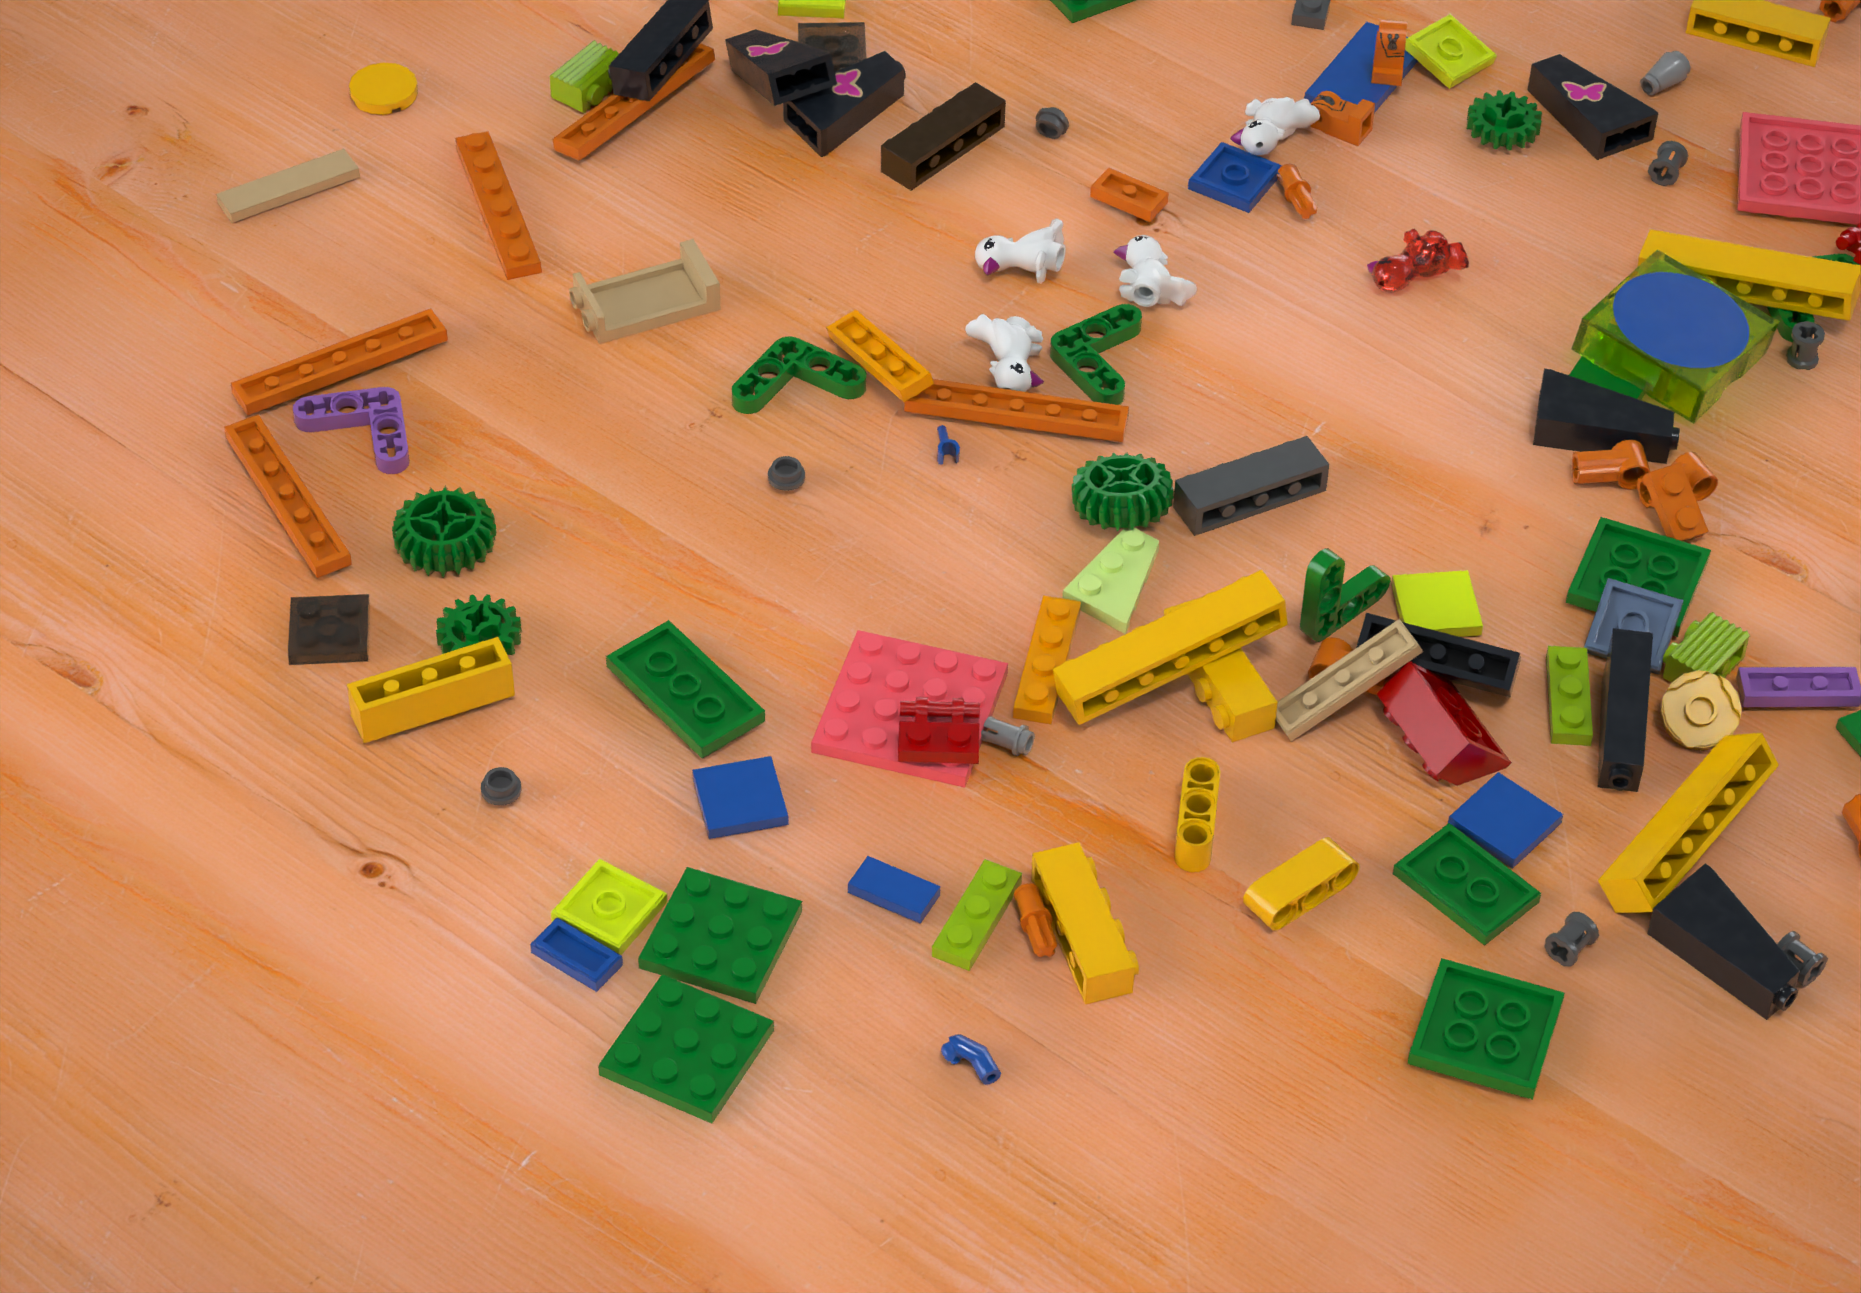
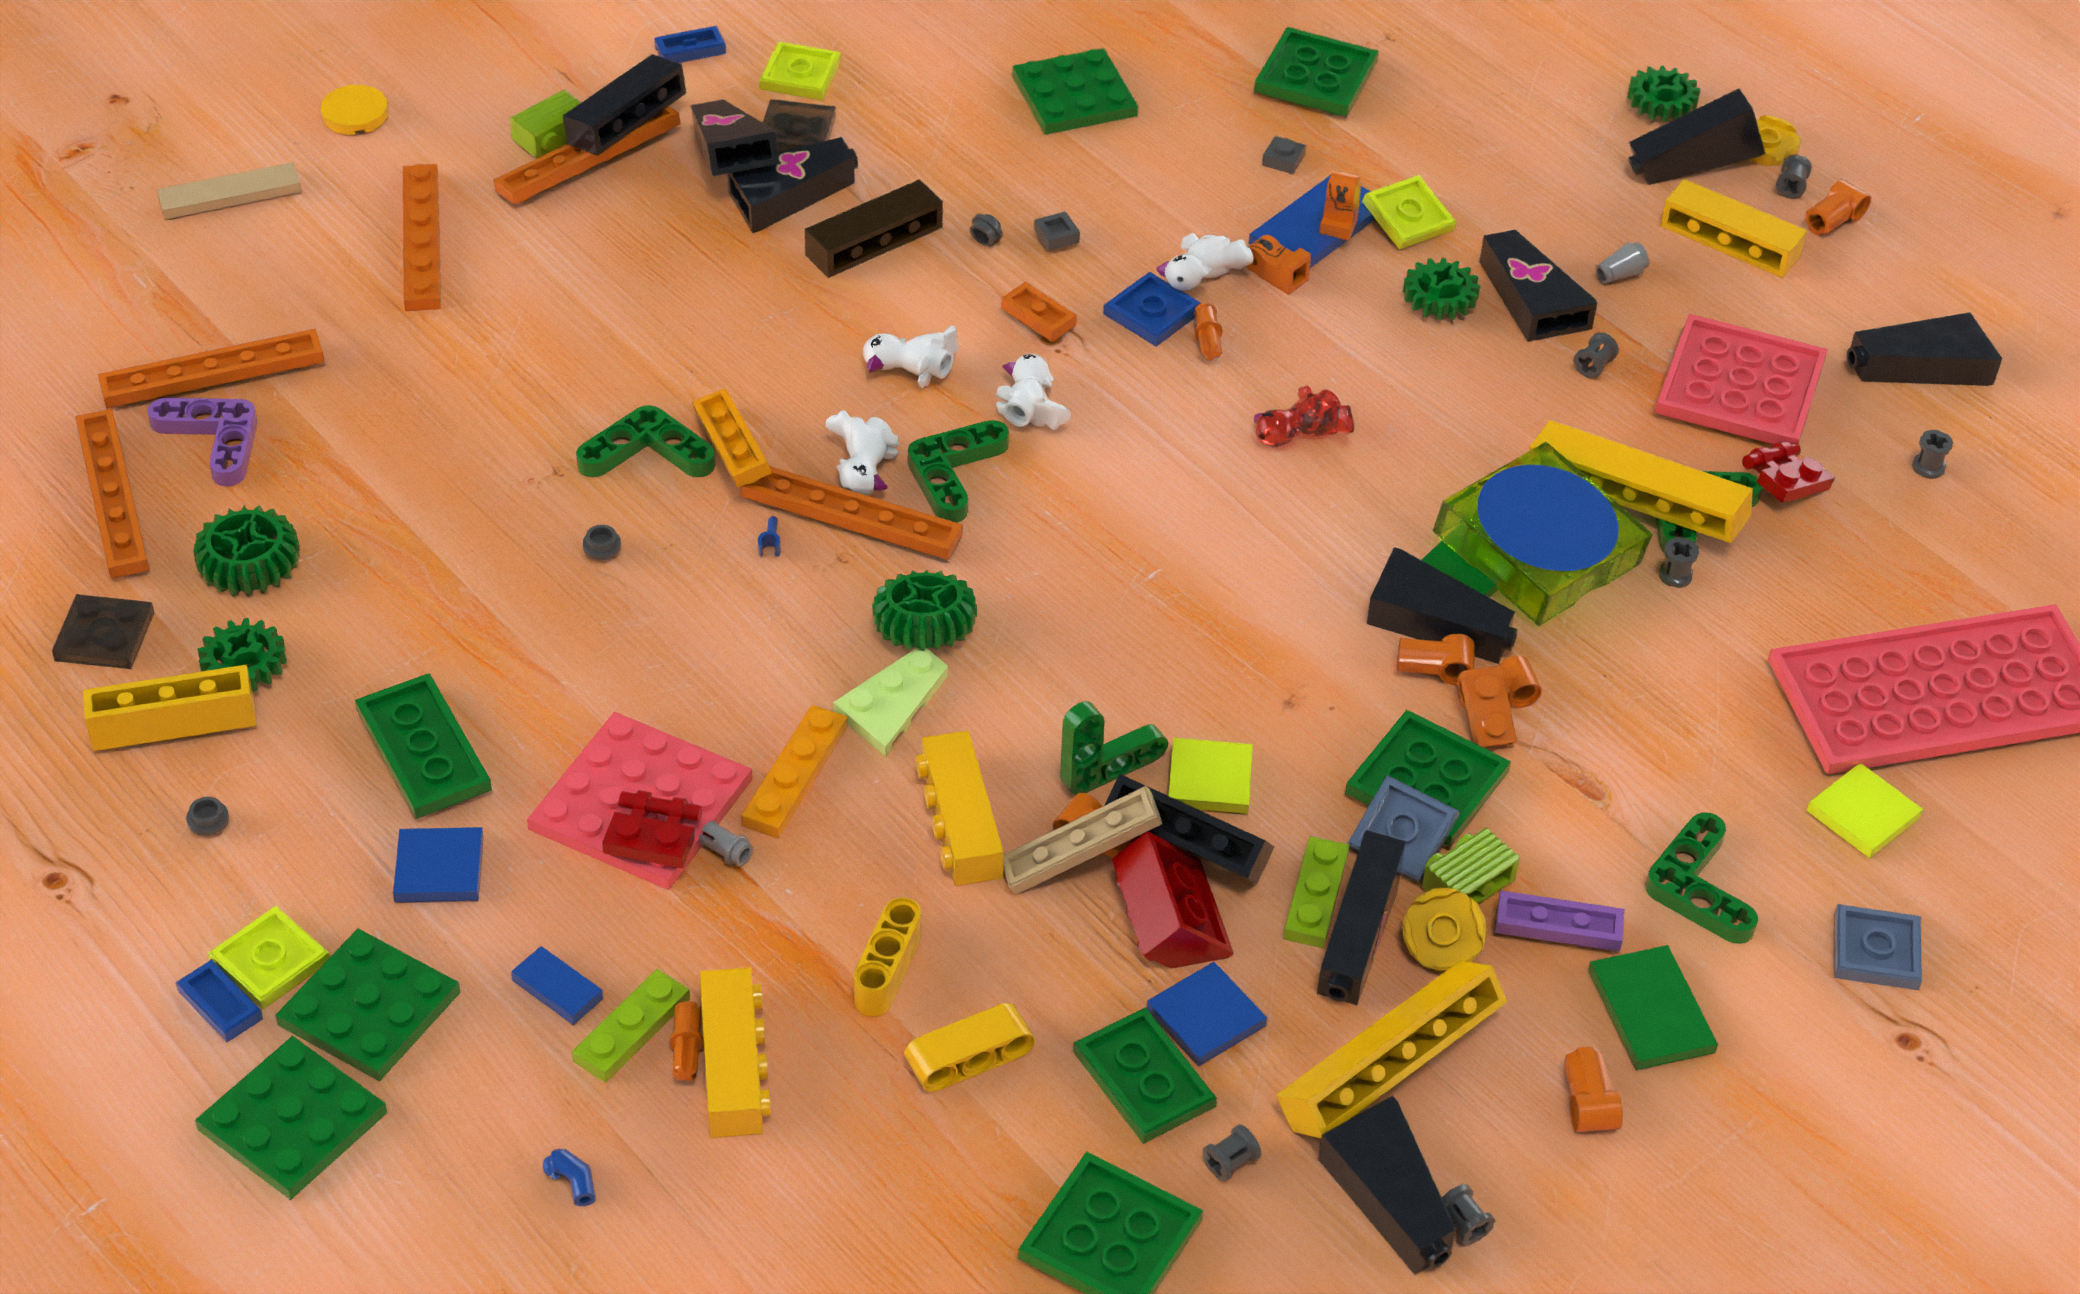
camera: 10 degrees right, 0 degrees up
(648, 296) = (529, 347): tan panel -> none
(1120, 114) = (1057, 231): none -> dark grey plate
(1170, 646) = (909, 778): yellow brick -> none
(1250, 485) = (1058, 623): dark grey brick -> none

